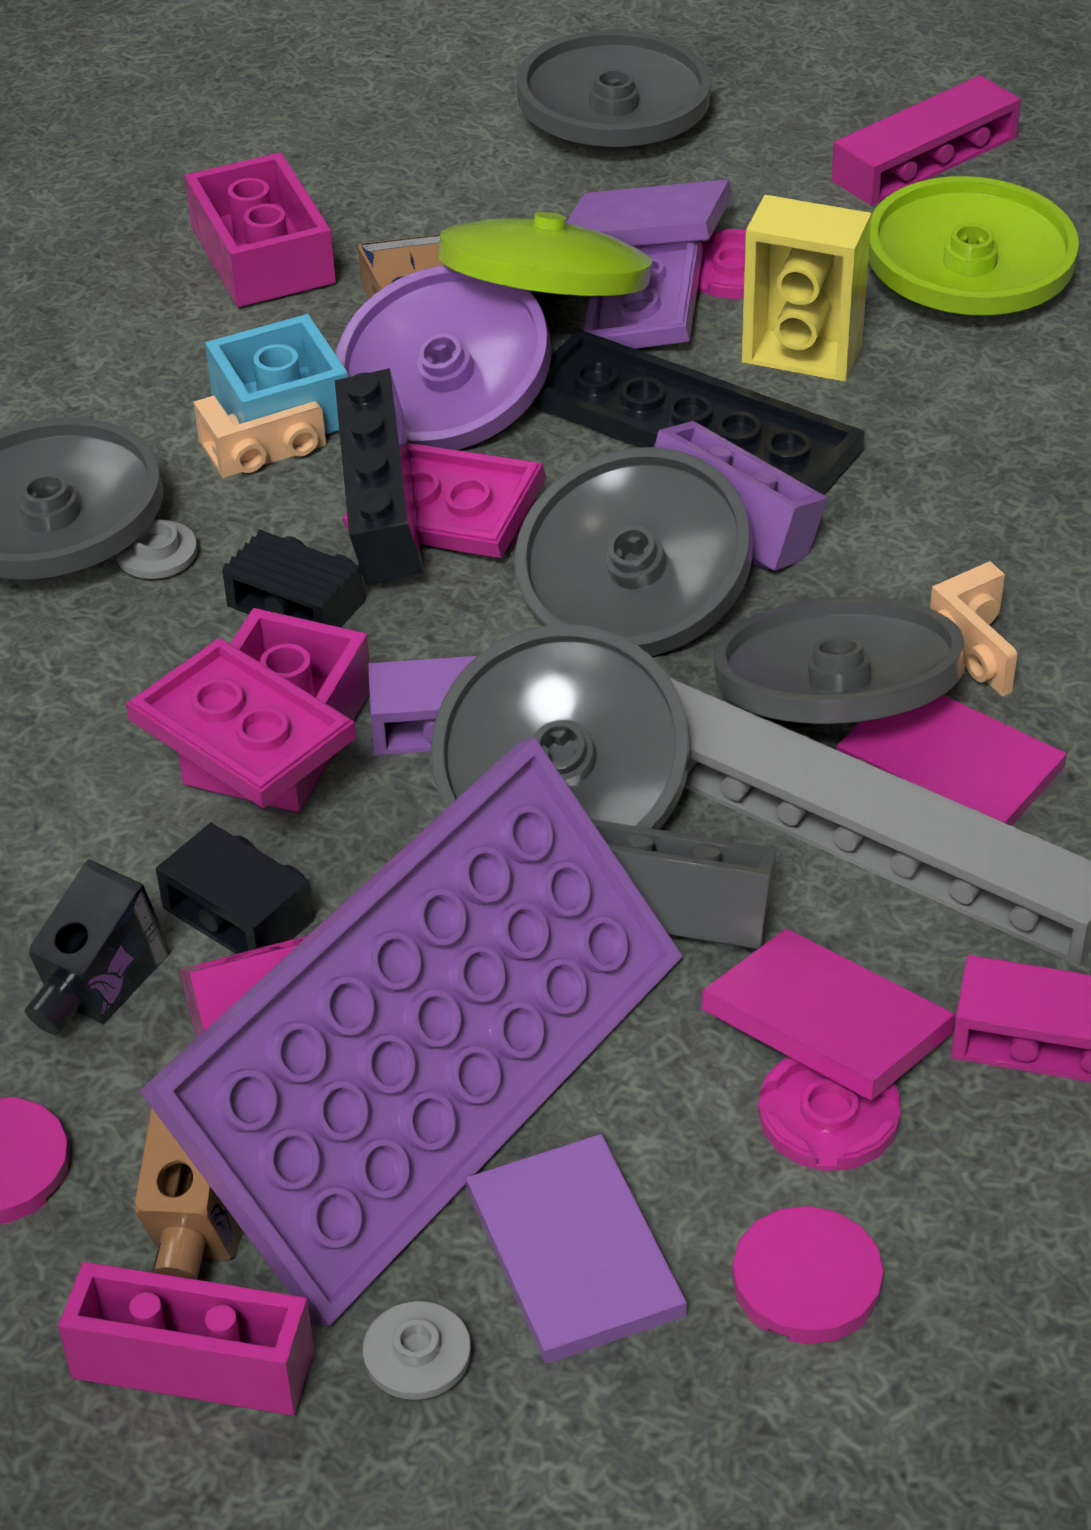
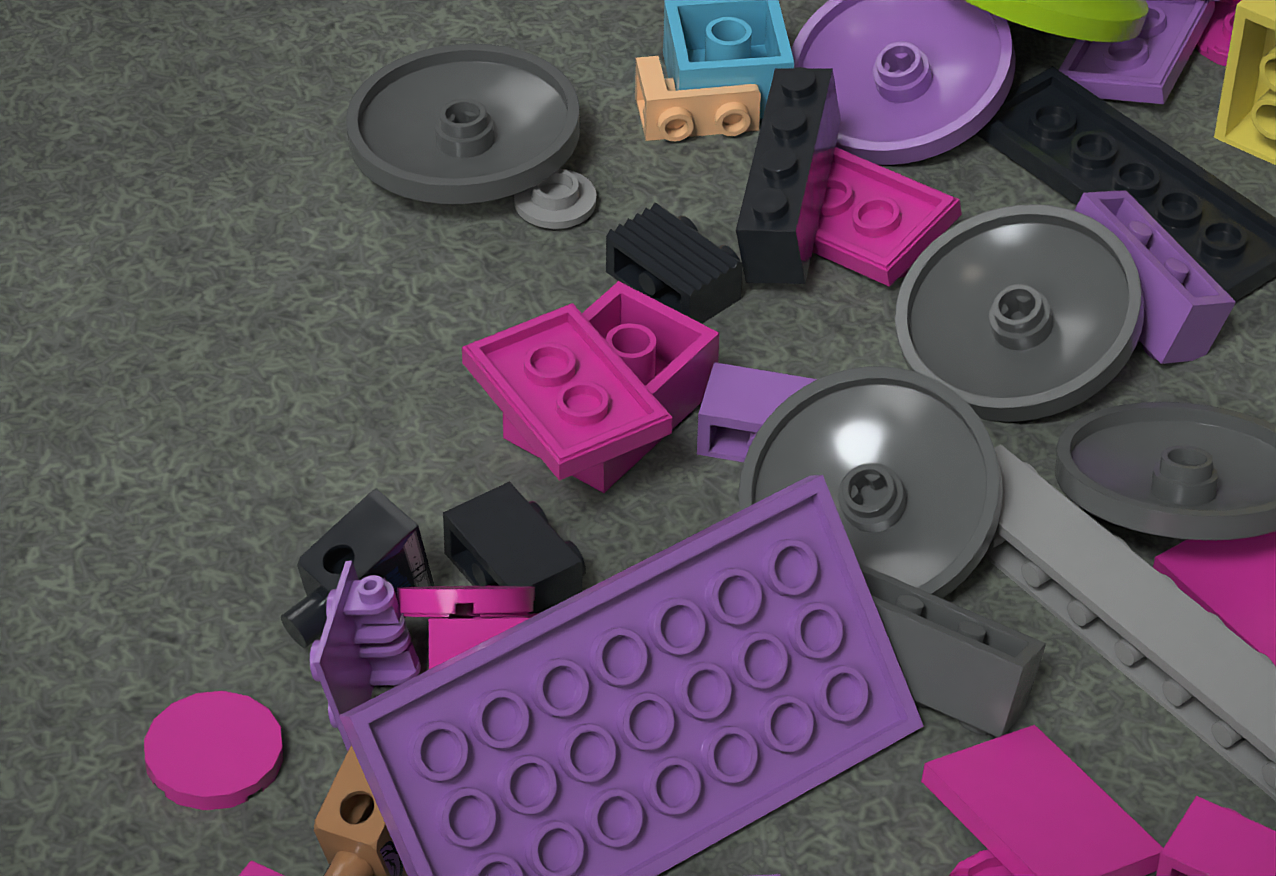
camera: 15 degrees right, 0 degrees up
(121, 1019) = (361, 644): none -> medium lavender hinge
(212, 947) = (466, 601): none -> dark pink tile

